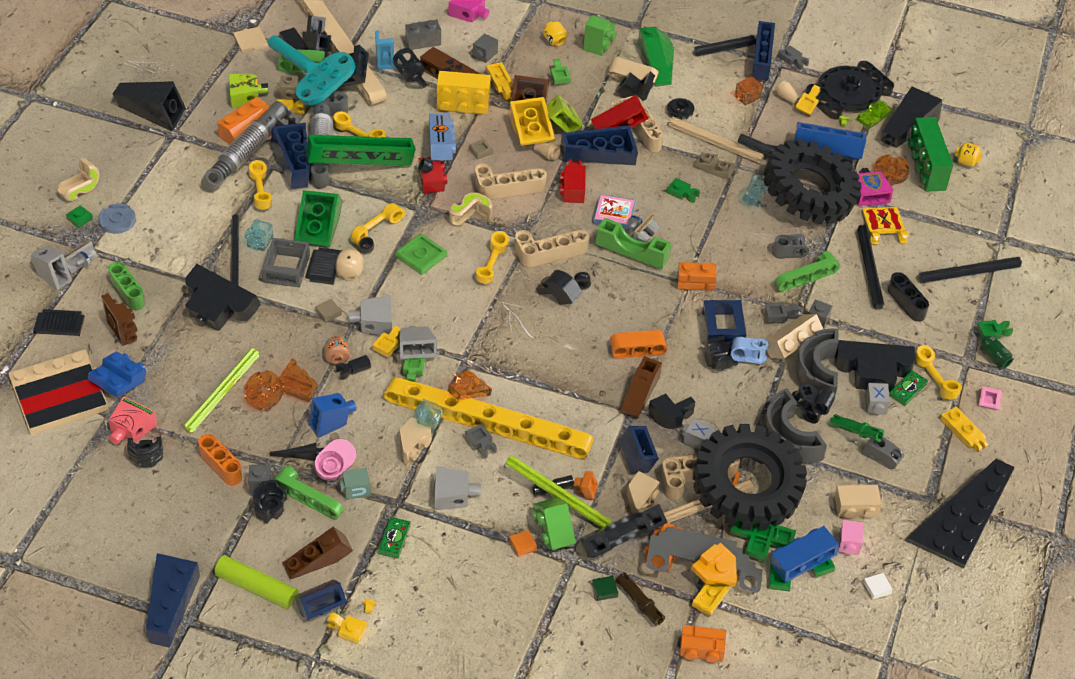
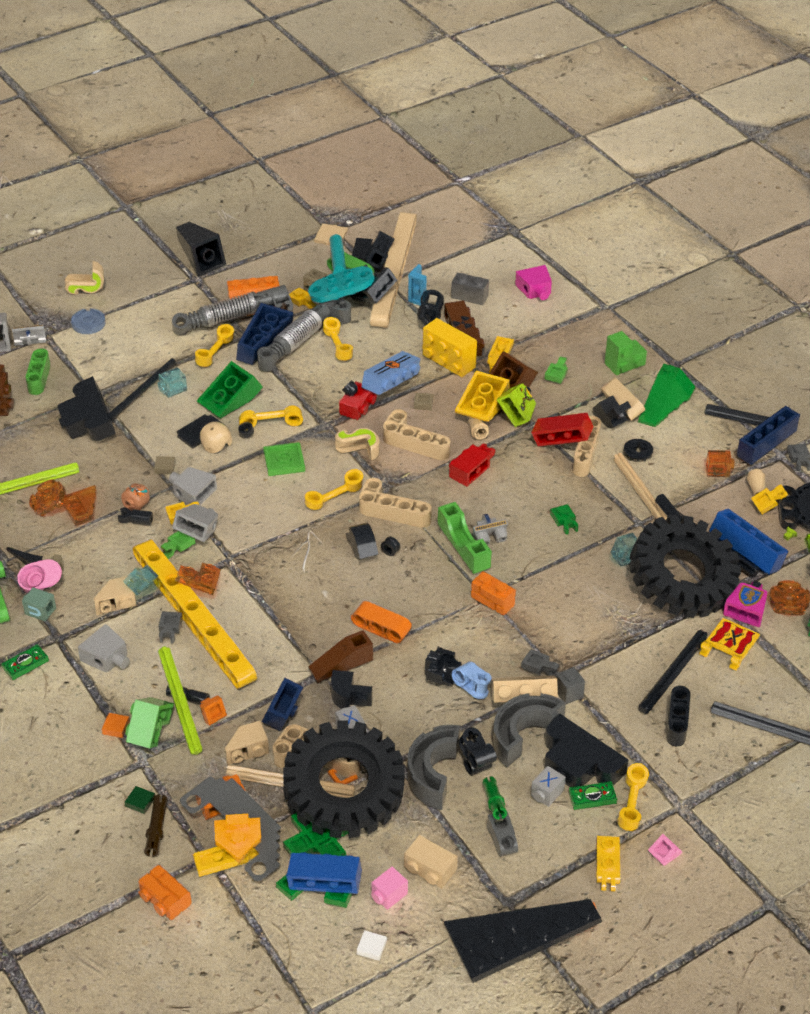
camera: 40 degrees right, 5 degrees down
(79, 216) = (63, 307): green plate -> none
(245, 88) = (282, 266): lime torso -> none
(284, 275) = (165, 427): dark grey window -> none
(329, 413) = (74, 539): blue torso -> none
(360, 150) = (309, 351): green brick -> none
(485, 48) = (512, 322): dark grey brick -> none
(555, 33) = (587, 337): yellow head -> none
(602, 145) = (524, 444): dark blue wedge -> none
(614, 209) = (483, 502): tile -> none
(634, 524) = (193, 759): black arch -> none
(711, 164) = (617, 512): dark tan slope -> none
(724, 307) = (494, 634): dark blue panel -> none
(788, 246) = (610, 613): dark grey piece -> none
(825, 266) = (631, 644): bright green beam -> none
(991, 328) = (734, 790): green plate -> none
(996, 351) = (715, 812): dark green head -> none

